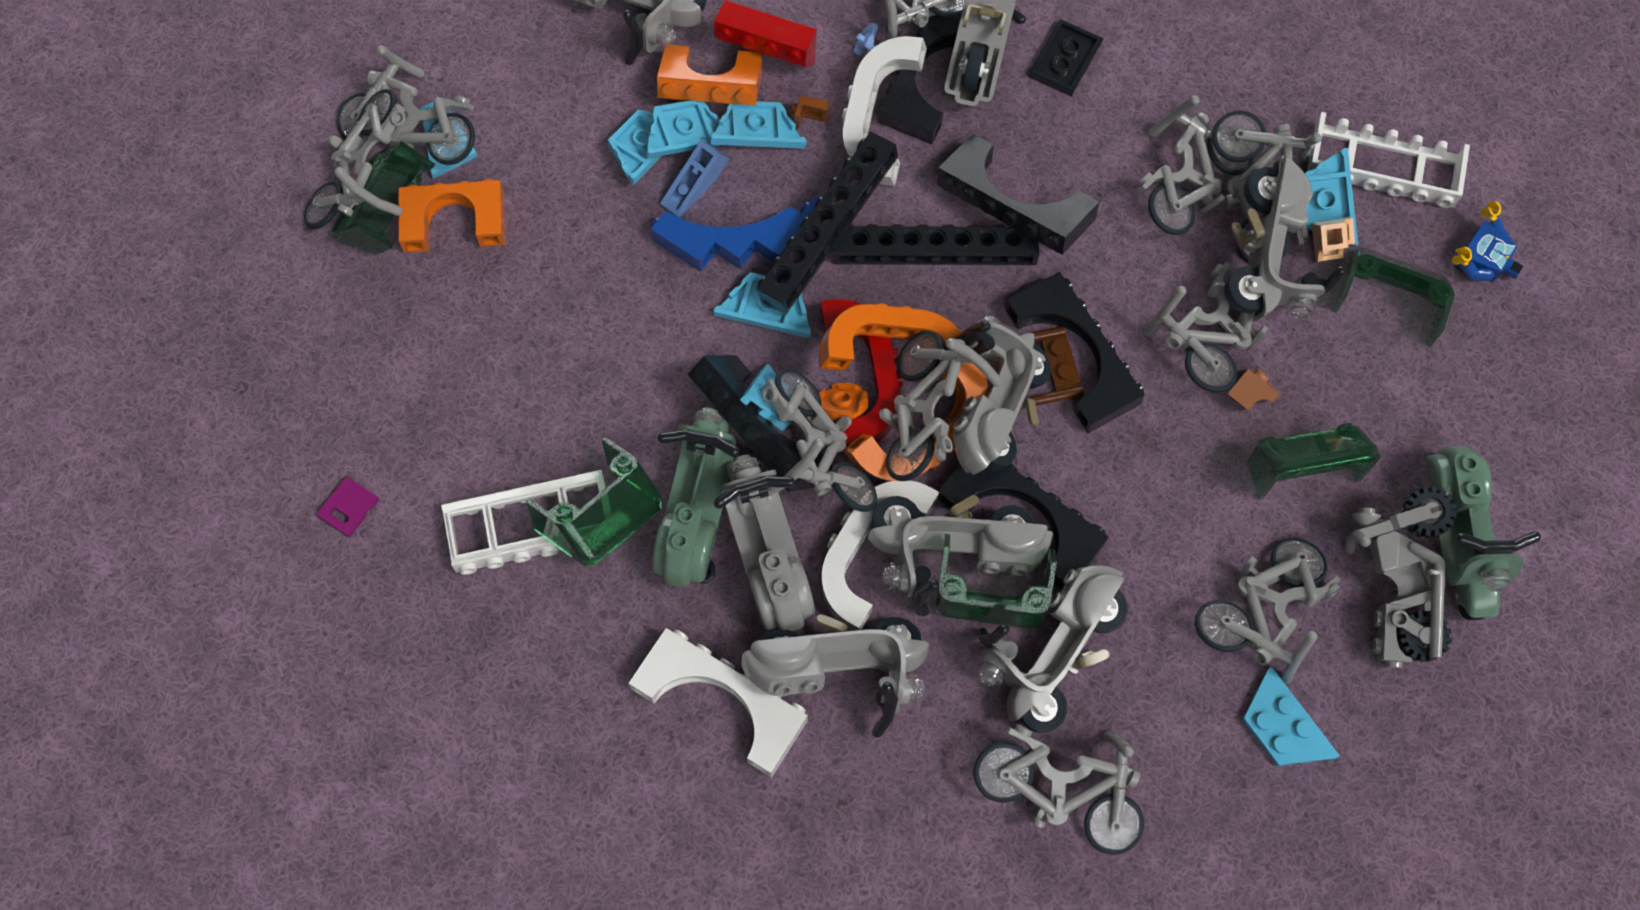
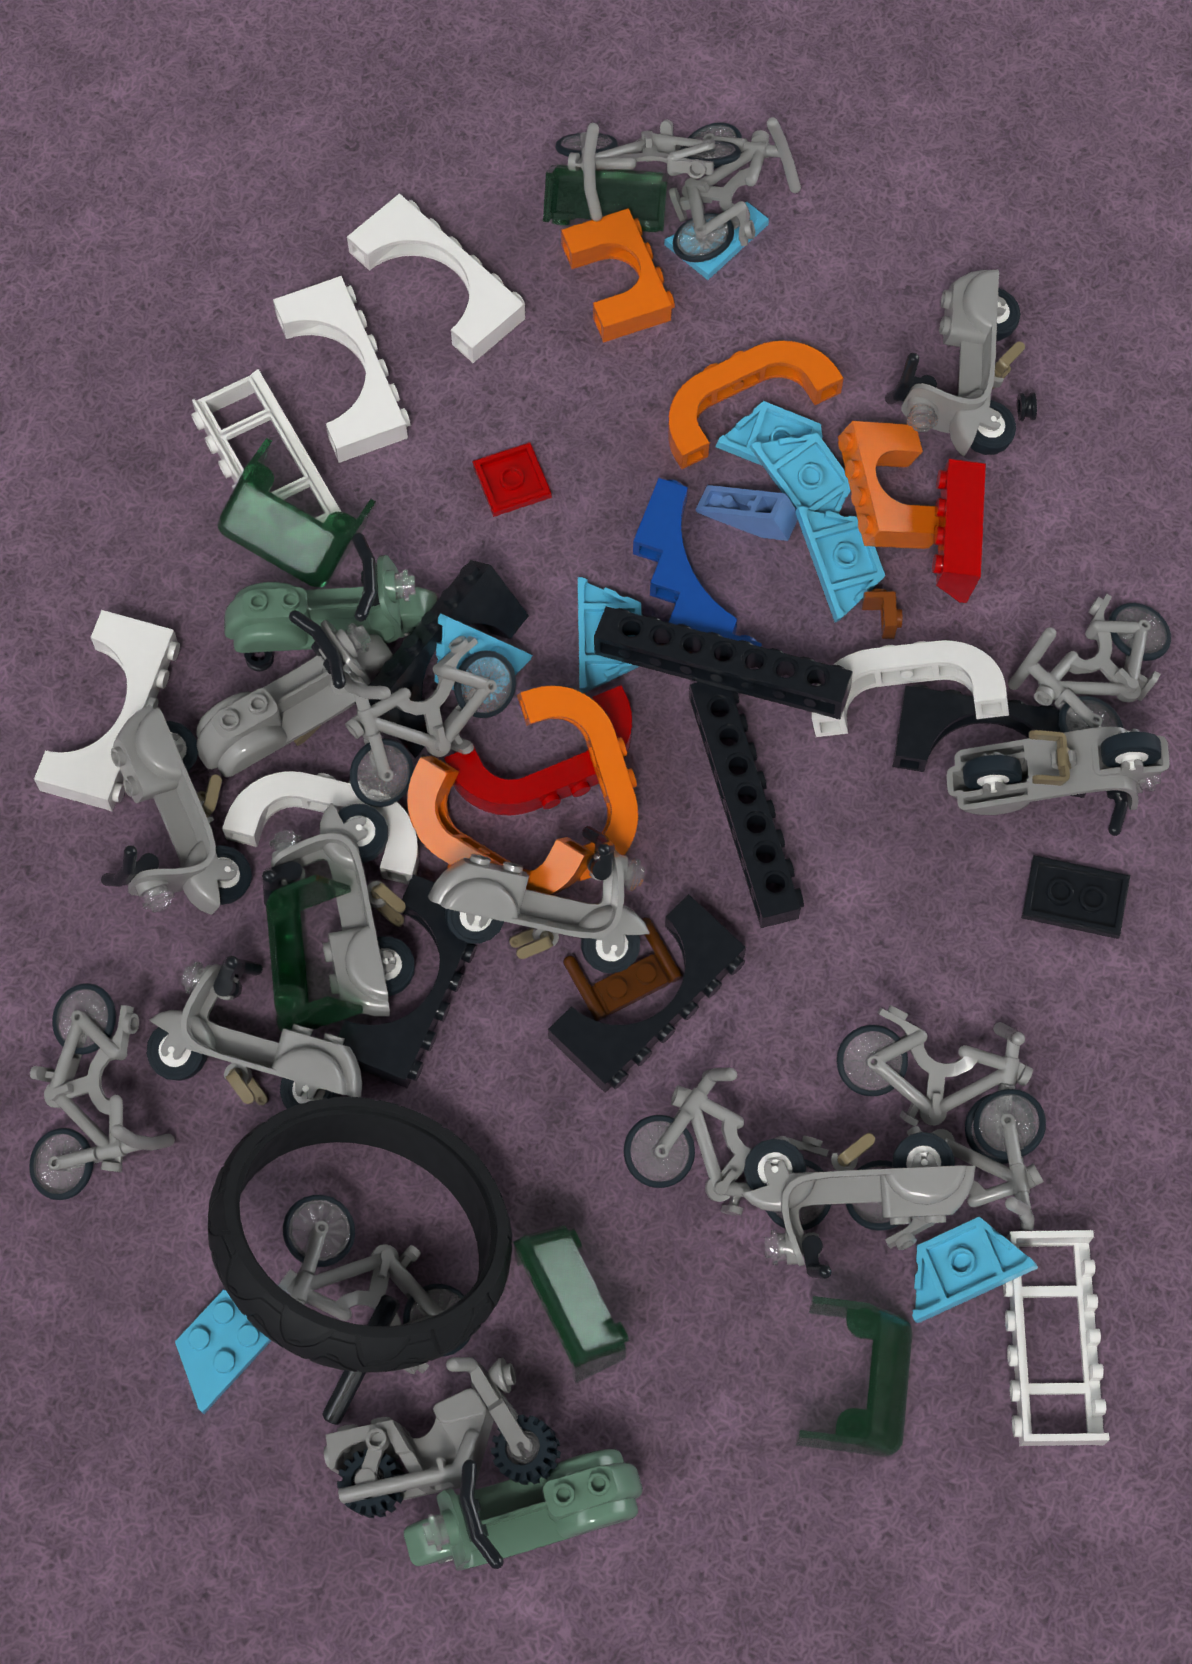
camera: 75 degrees right, 0 degrees up
(348, 361) = (404, 231): none -> white arch
(352, 502) = (248, 290): magenta piece -> none
(404, 437) = (330, 313): none -> white arch
(581, 108) = (741, 371): none -> orange arch
(606, 341) = (511, 479): none -> red tile
(844, 400) = (501, 744): orange tile -> none
(866, 39) = (1009, 651): light blue piece -> none
(925, 358) = (560, 821): light grey piece -> none
(1051, 224) = (801, 920): black arch -> none
(1252, 388) = (657, 1219): nougat brick -> none
(1262, 672) = (319, 1336): none -> black tyre
(1325, 622) = (350, 1381): none -> black axle
(1332, 237) = (906, 1278): light nougat brick -> none
(1488, 250) = (954, 1494): blue torso -> none

